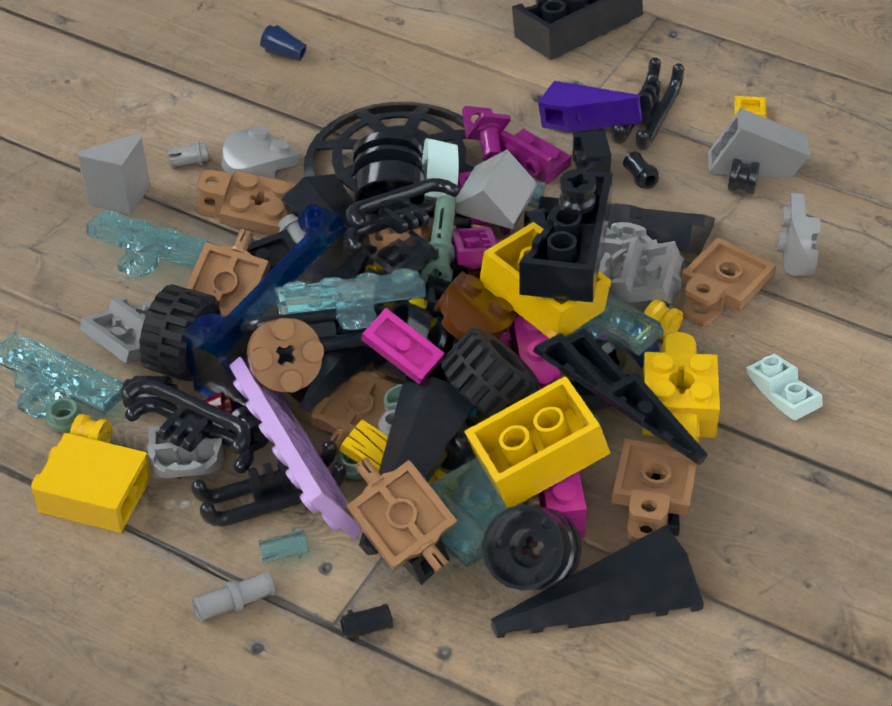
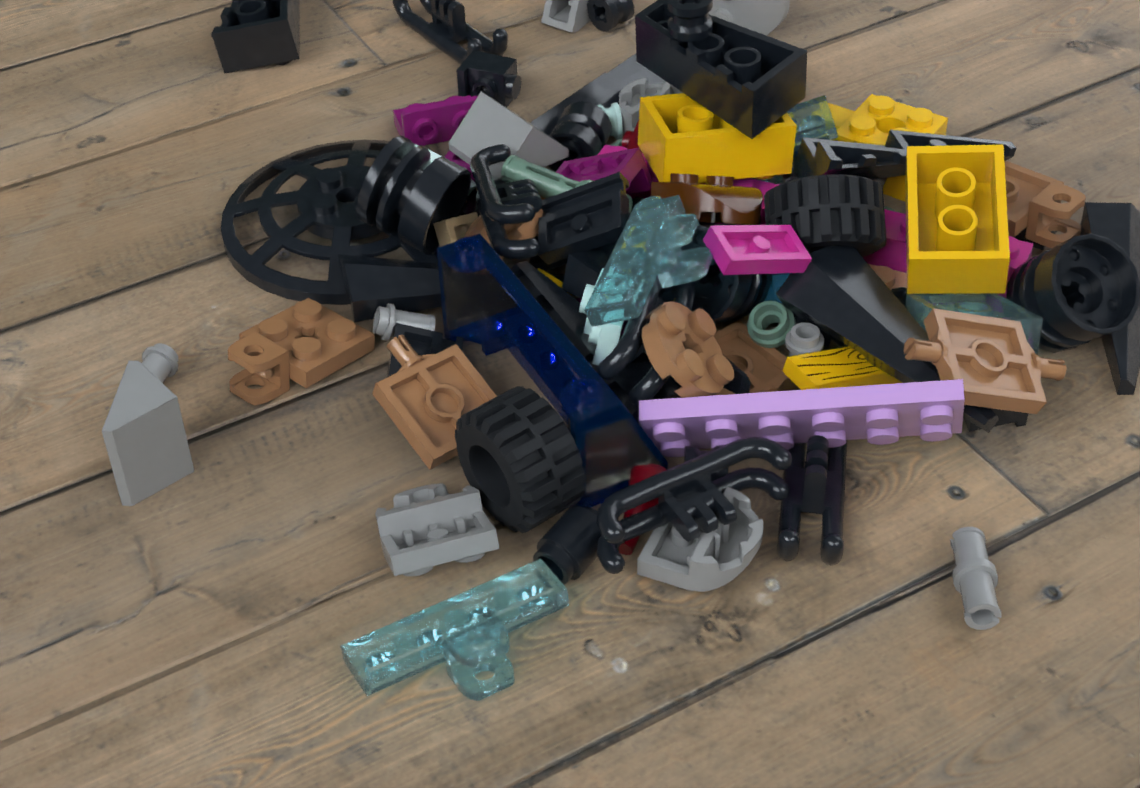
camera: 60 degrees left, 5 degrees down
(62, 414) = (538, 648): sand green plate -> none
(91, 482) = (696, 651): yellow brick -> none
(92, 429) = (605, 624): yellow wheel -> none
(144, 242) = (284, 461): clear light blue plate -> none
(257, 153) = (214, 315): light grey slope -> none
(282, 43) = (34, 228): dark blue cone -> none
(283, 546) = (917, 498): clear light blue pin -> none
(366, 621) = (1073, 485): black pin -> none
(485, 128) = (390, 121): magenta bracket -> none
(583, 107) = (415, 55): dark purple slope -> none
(644, 174) = (538, 62): black pin -> none
(780, 384) = (927, 92): light aqua slope -> none

